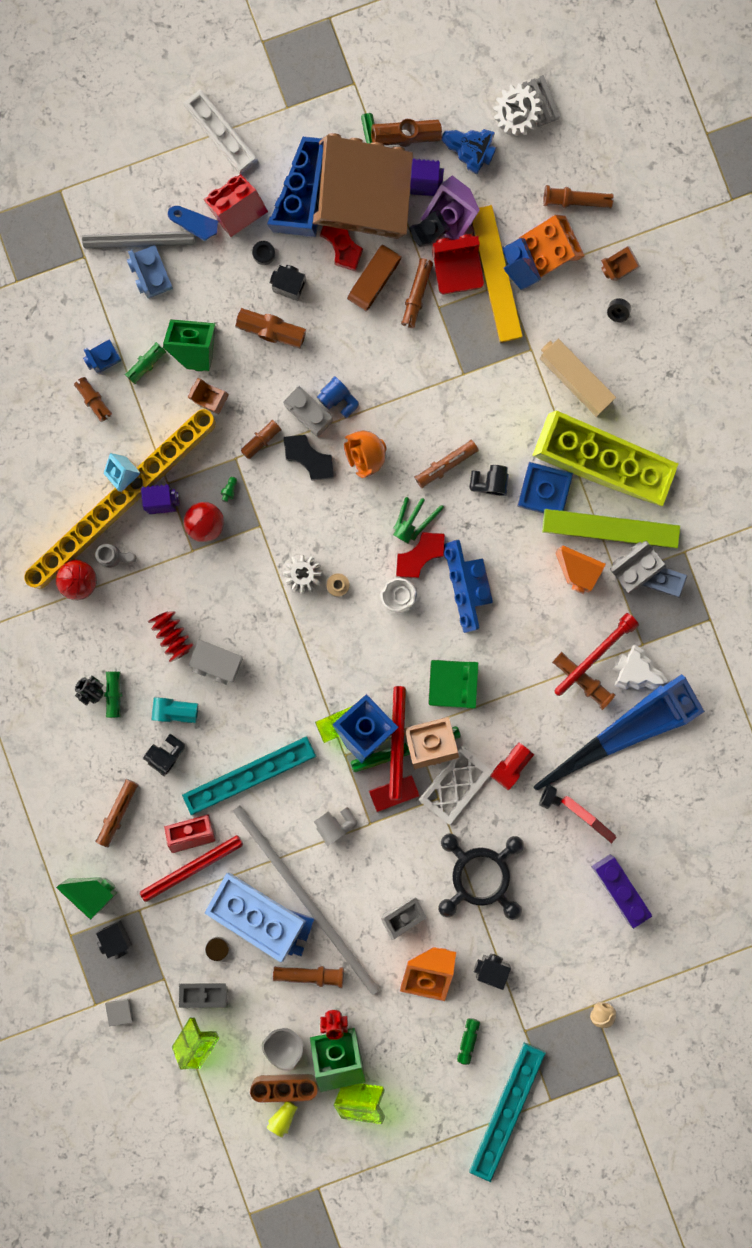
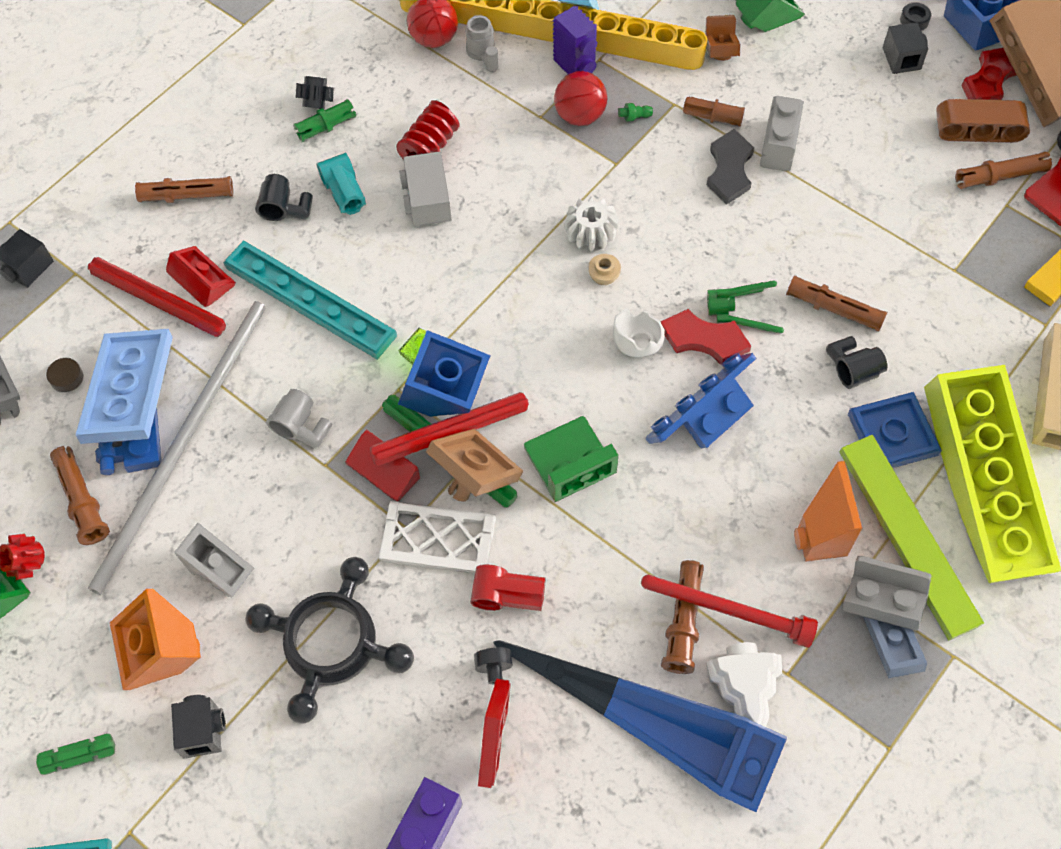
camera: 65 degrees right, 25 degrees down
(88, 894) = (63, 201): green slope -> none
(270, 328) = (843, 58): dark orange piece -> none
(334, 393) = (823, 149): blue piece -> none
(365, 452) = (783, 209): orange cylinder -> none

